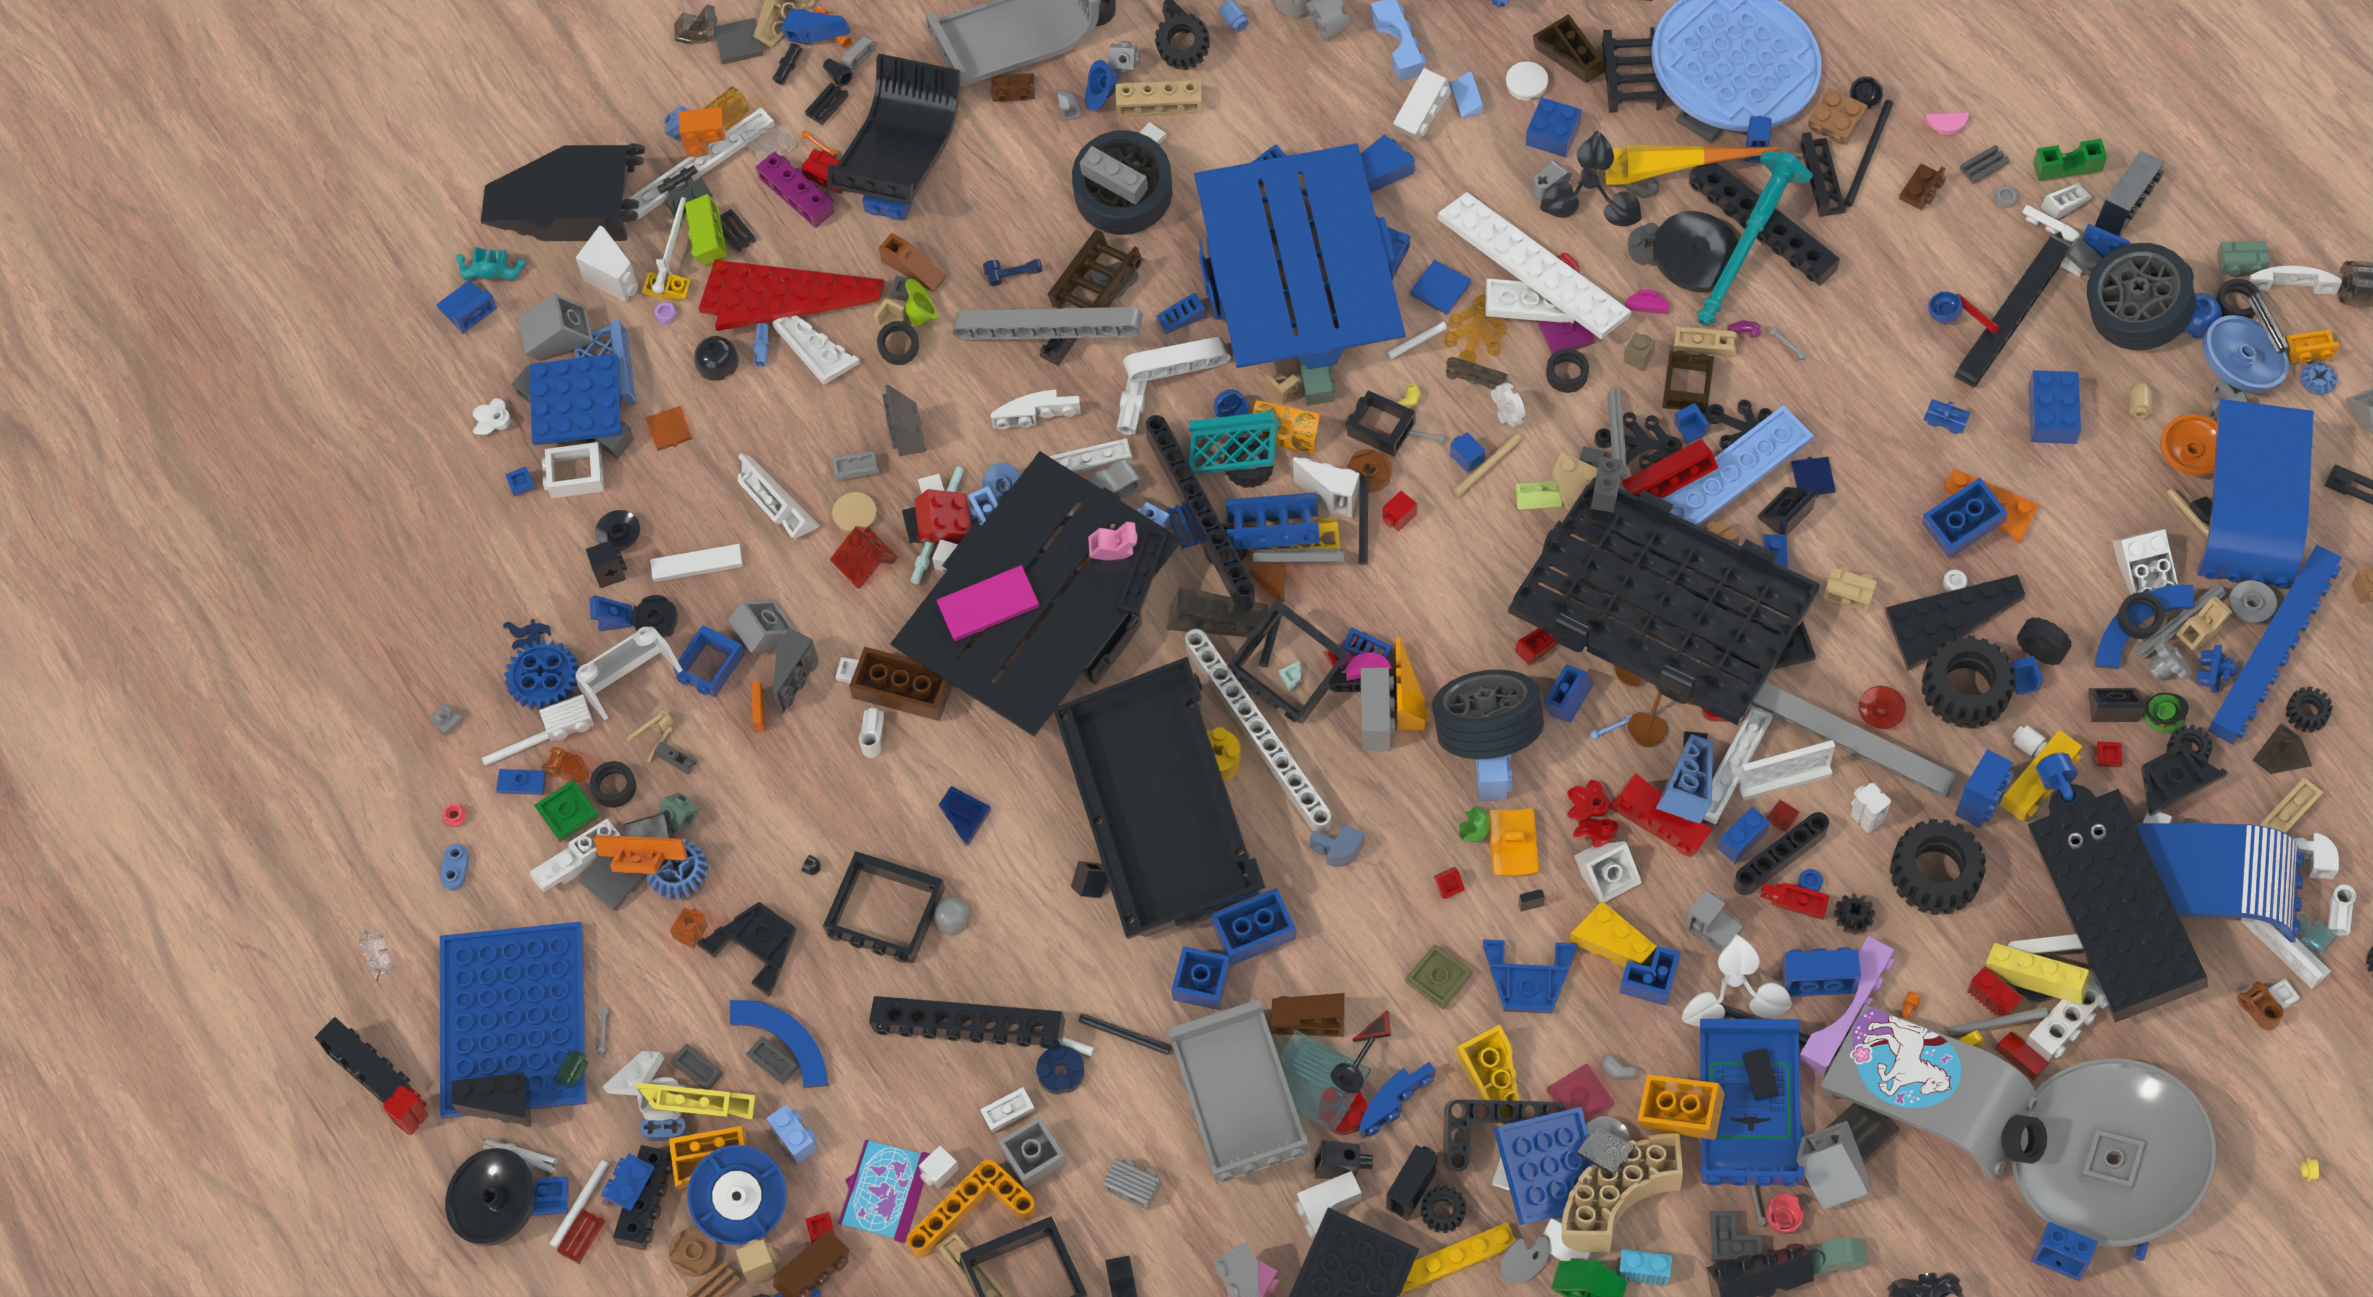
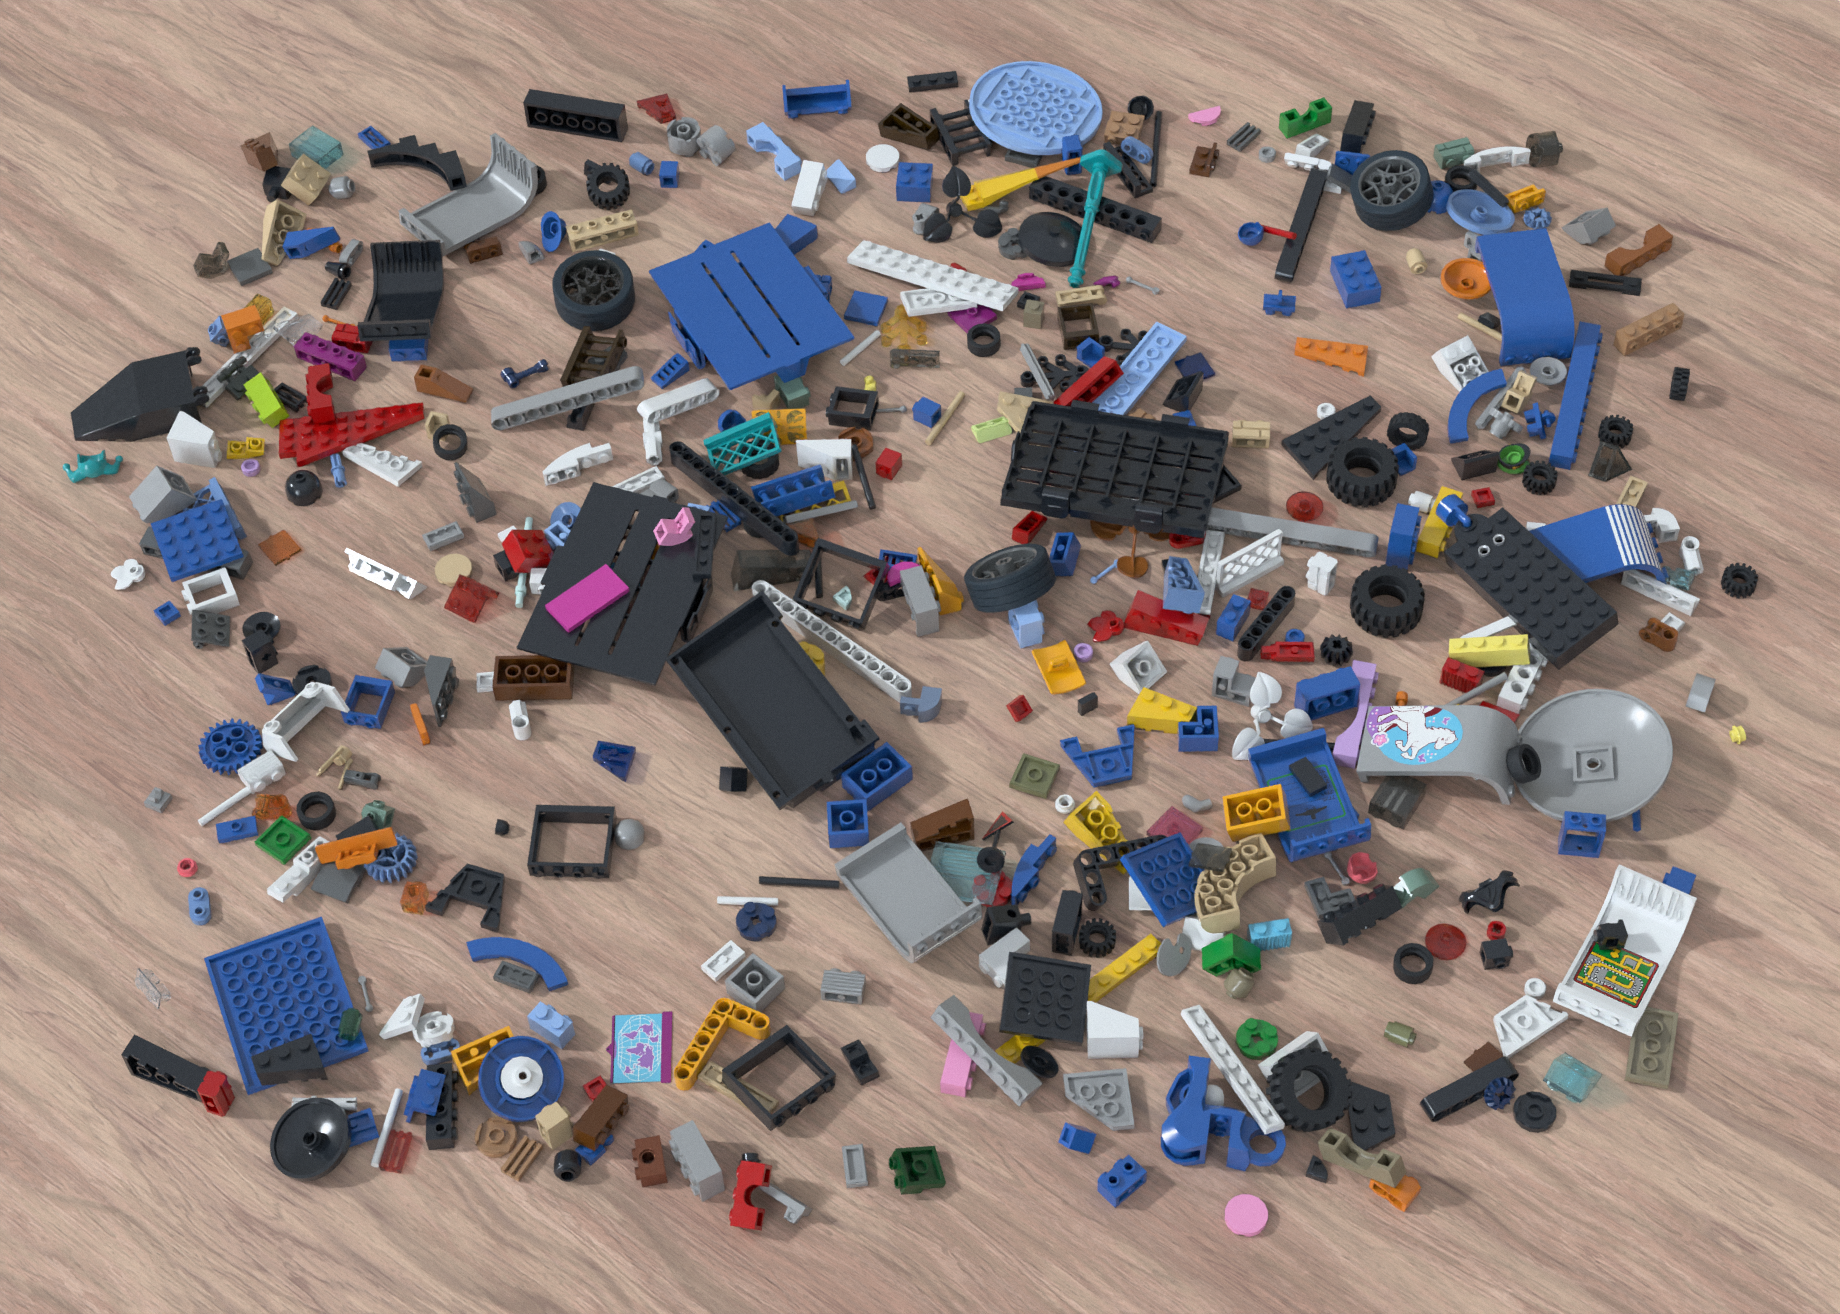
camera: 20 degrees left, 10 degrees down
(467, 306) = (83, 499): blue bracket -> none
(533, 630) = (212, 718): dark blue piece -> none
(561, 515) = (210, 629): none -> dark grey hinge
(663, 264) = (239, 429): white sword -> none
(696, 563) = (334, 636): white tile -> none
(696, 1067) = (454, 1000): dark grey tile -> none
(698, 1100) = (464, 1017): light yellow wedge -> none
(772, 219) = (319, 381): none -> red arch
(787, 64) = (295, 273): black pin -> none
(886, 1008) = (660, 899): black brick -> none
(899, 289) = (442, 404): dark grey plate -> none
(919, 304) = (458, 413): lime piece -> none
(938, 1168) = (681, 1016): white brick -> none
(1113, 175) = (588, 280): light grey brick -> none
(1116, 57) = (564, 200): light grey brick -> none
(1262, 39) = (669, 174): none -> blue brick
(1462, 1017) = (1064, 799): none -> white plate
(1477, 825) = (1026, 663): bright green hair -> none
(1509, 405) = (948, 371): white plate -> none
(1549, 828) = (1083, 652): none -> lavender tile
(1599, 830) = (1124, 642): red plate -> none
(1606, 484) = (1044, 400): dark grey brick -> none
(1640, 326) = (1023, 299): none -> black tile
(1833, 1166) = (1389, 822): light grey slope -> none
(1842, 151) = (1136, 149): none -> medium blue plate
(1964, 518) = (1318, 364): blue brick -> none
(2137, 632) = (1474, 385): black tyre -> none
(2176, 777) = (1539, 495): black wing -> none
(2283, 1101) = (1700, 692): none -> light grey brick

